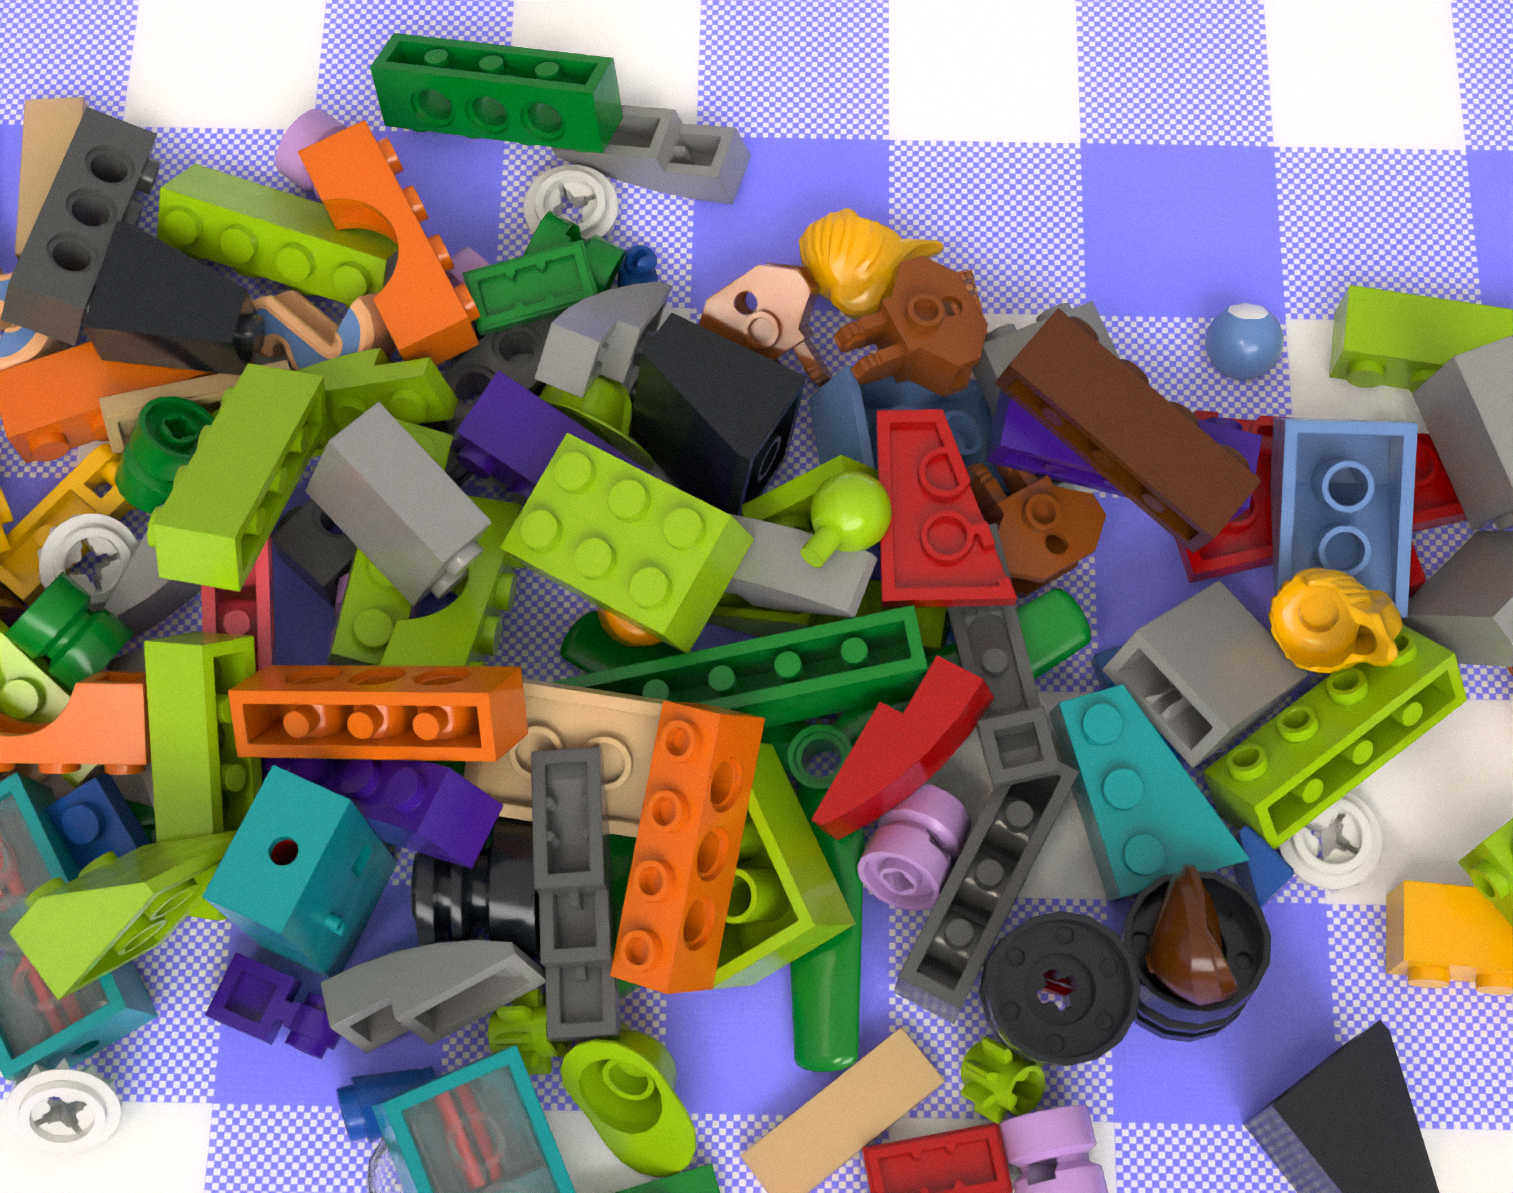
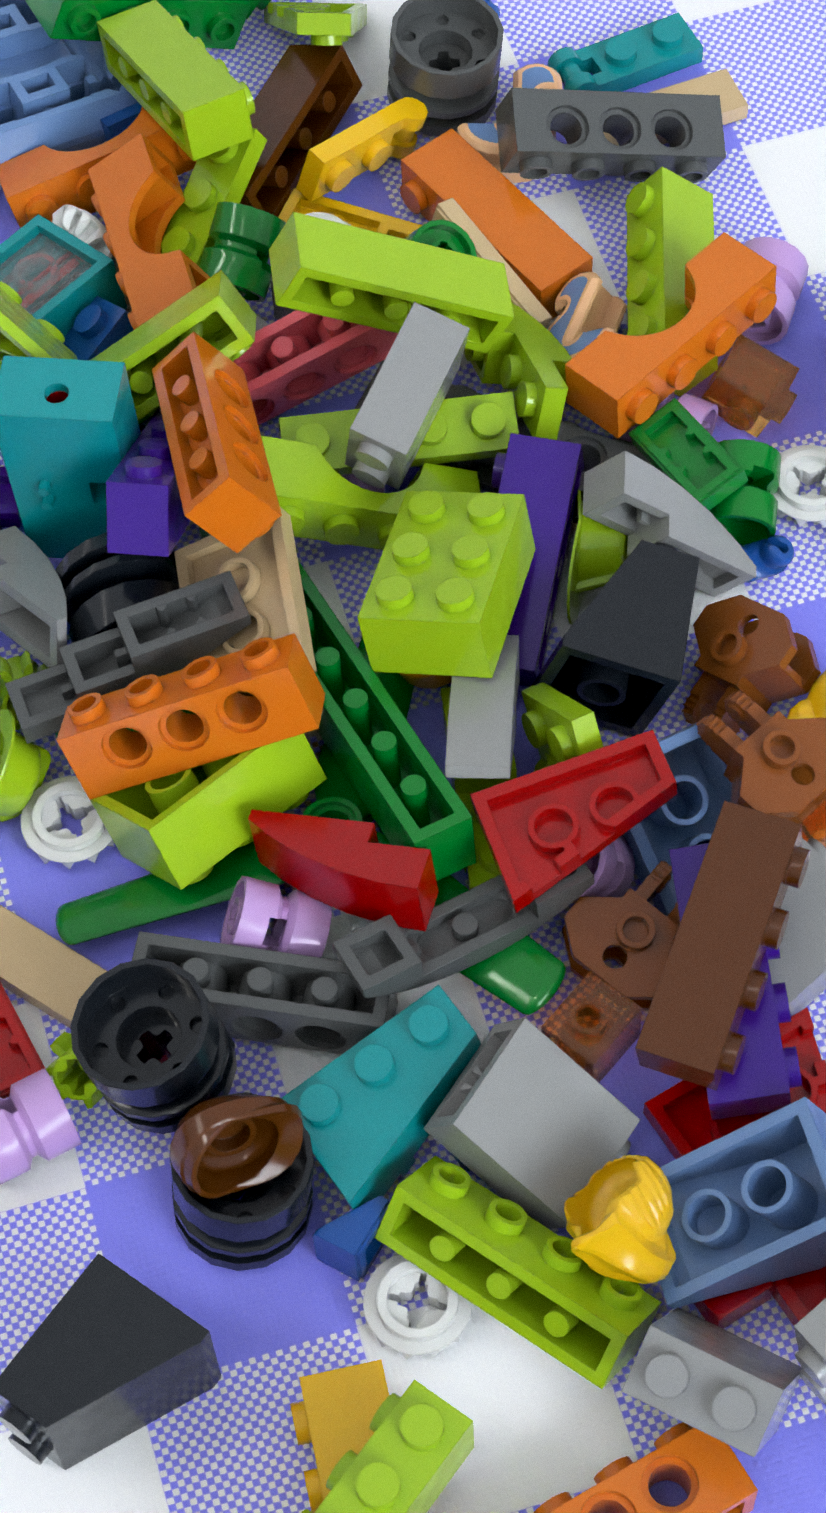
camera: 75 degrees right, 10 degrees down
(169, 309) = (550, 210): black slope -> none
(456, 208) = (751, 386): none -> clear orange brick
(727, 1043) = (43, 823): none -> white gear
(847, 515) = (537, 735): lime piece -> none
(1109, 595) = (594, 1025): none -> clear orange brick

